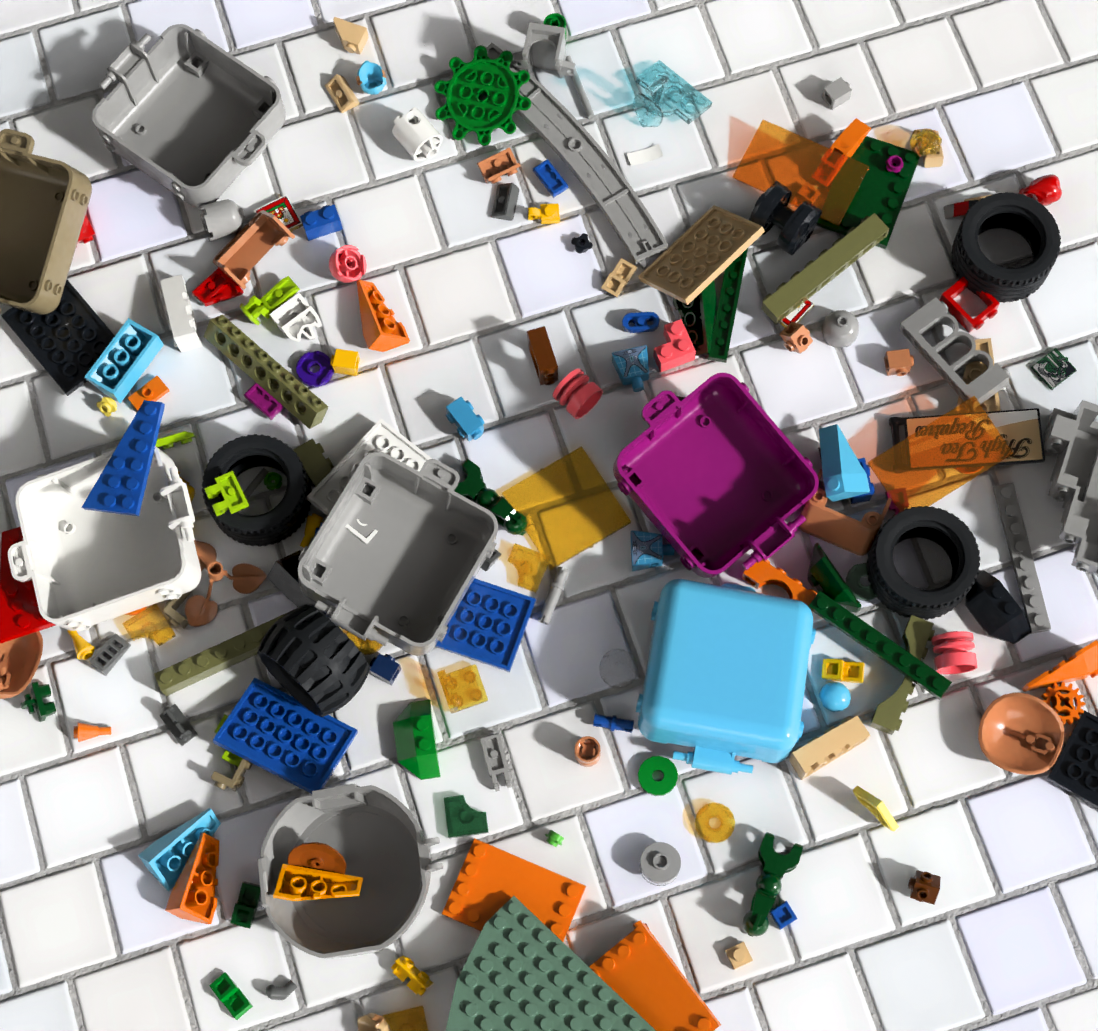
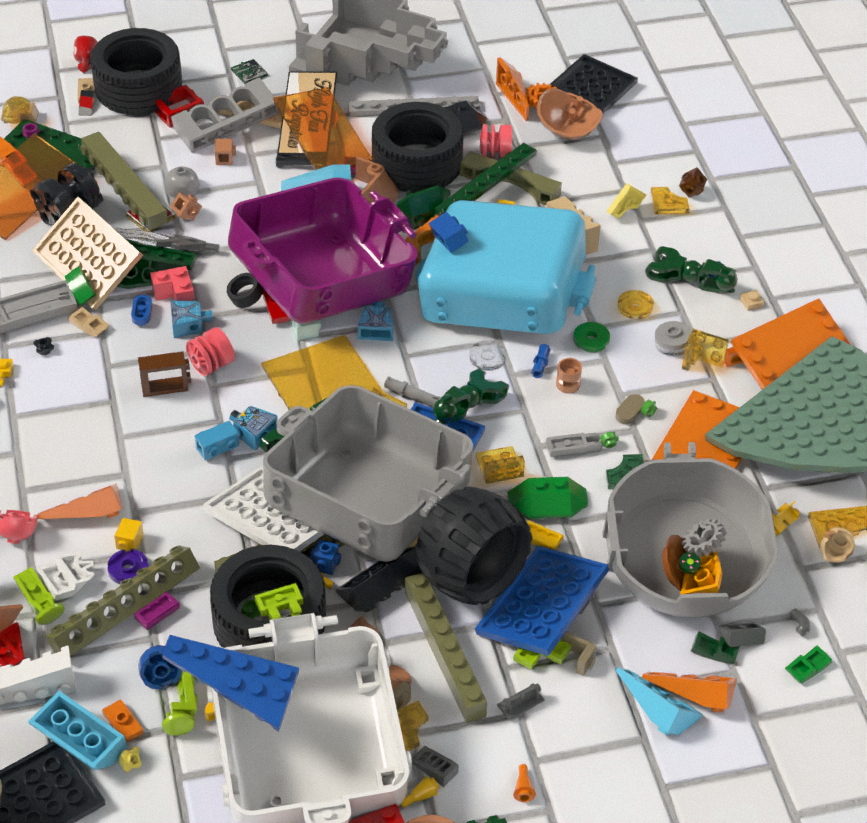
camera: 90 degrees left, 25 degrees down
(198, 411) = (155, 670): none -> blue cylinder
(262, 931) = (743, 634): none -> dark grey slope
(310, 870) = (689, 563): none -> dark green tile
(338, 883) = (704, 537): none -> light grey gear
(371, 734) = (545, 537): none -> yellow plate
(490, 449) = (253, 425): none -> torso
(505, 797) = (609, 439): none -> bright green plate
(540, 649) = (458, 401): none -> dark green piece
(554, 819) = (629, 409): none -> dark tan tile
(633, 882) = (704, 348): none -> clear yellow bracket
(663, 253) = (79, 285): none -> green slope
(728, 598) = (449, 232): none -> blue brick
(740, 340) = (167, 240): none -> piece
(893, 859) = (667, 203): none -> clear yellow tile

